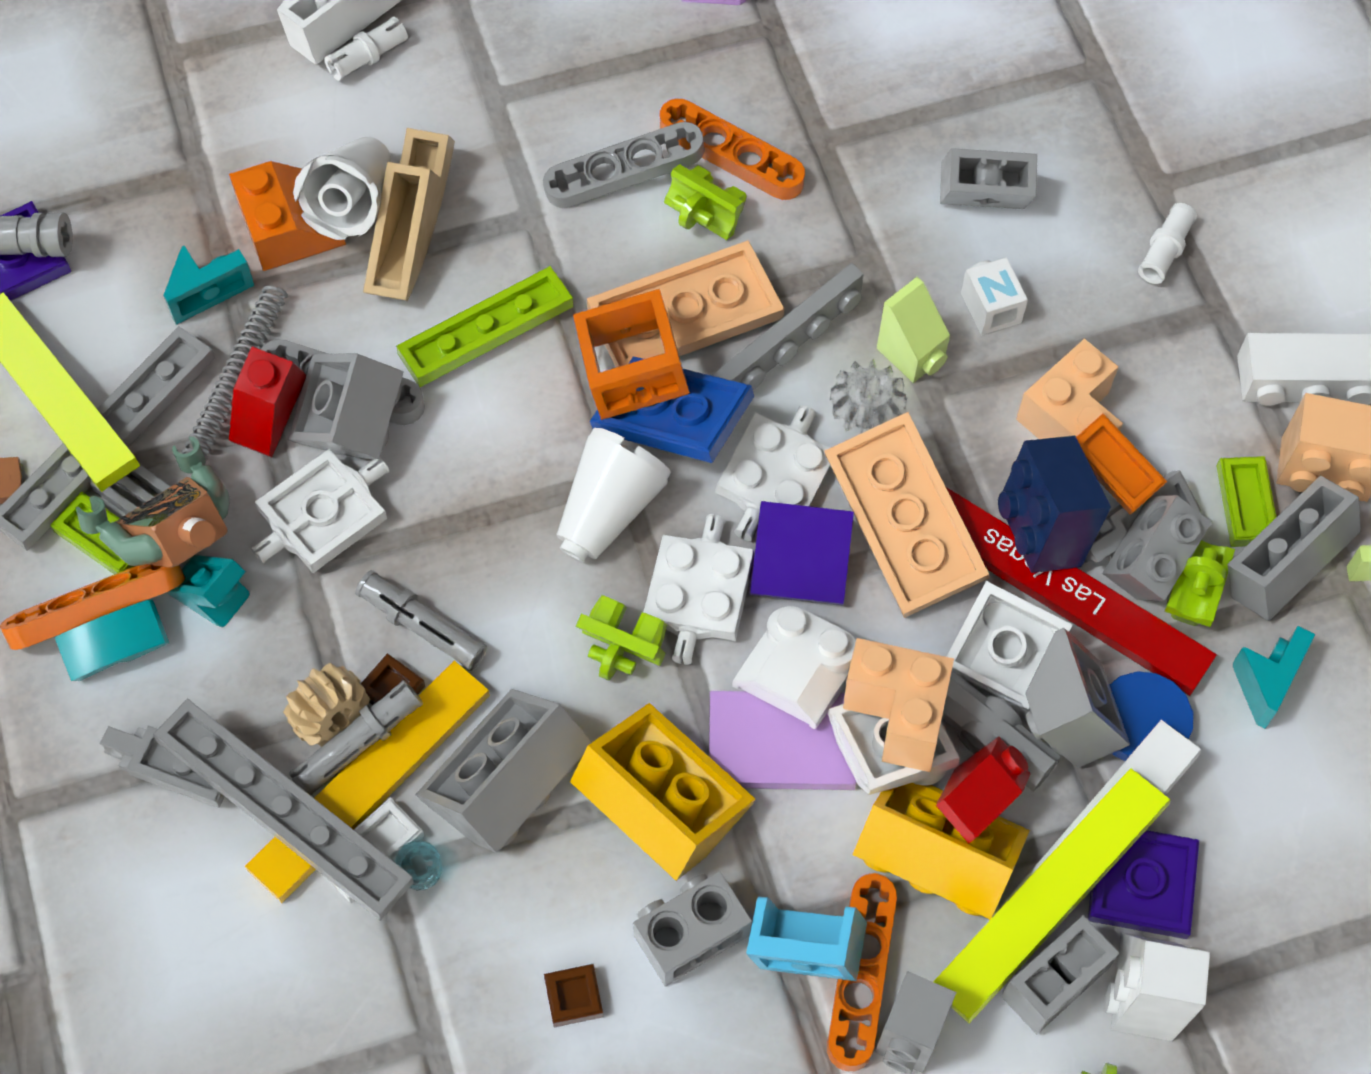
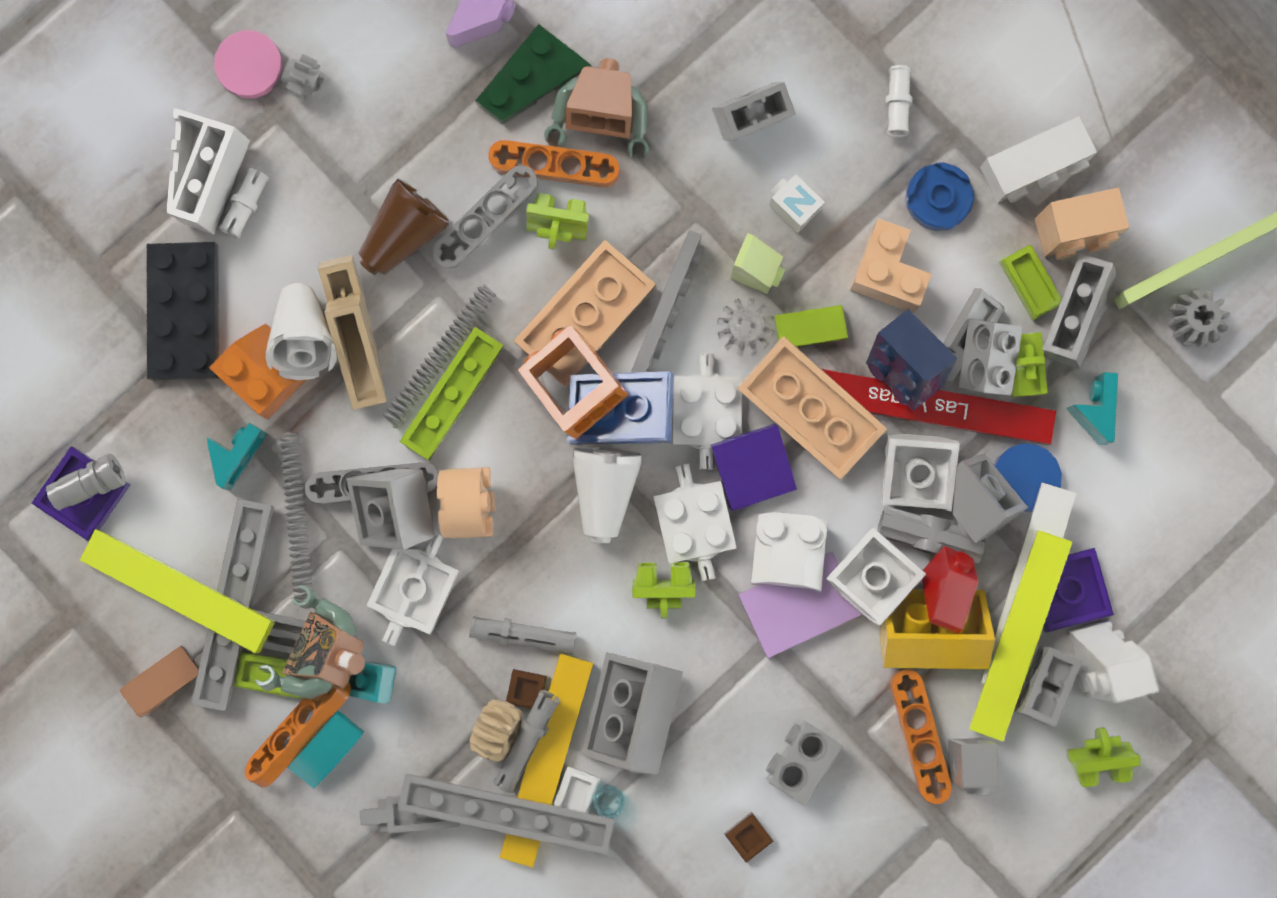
camera: 25 degrees left, 20 degrees up
(235, 123) = (182, 310): none -> black plate
(263, 400) = (331, 528): red slope -> none
(434, 435) = (465, 503): none -> light nougat brick
(506, 270) = (433, 356): none -> light grey piece
(520, 134) = (400, 228): none -> reddish brown cone
(661, 790) = (742, 681): yellow slope -> none
(755, 52) = (531, 73): none -> dark green wing
(807, 941) = (880, 737): medium azure panel -> none
(814, 104) = (601, 104): none -> nougat torso
(907, 690) = (881, 549): light nougat brick -> none
(954, 435) = (812, 326): none -> lime tile
(1119, 464) = (941, 309): orange tile -> none
(1173, 363) = (939, 196): none -> blue tile

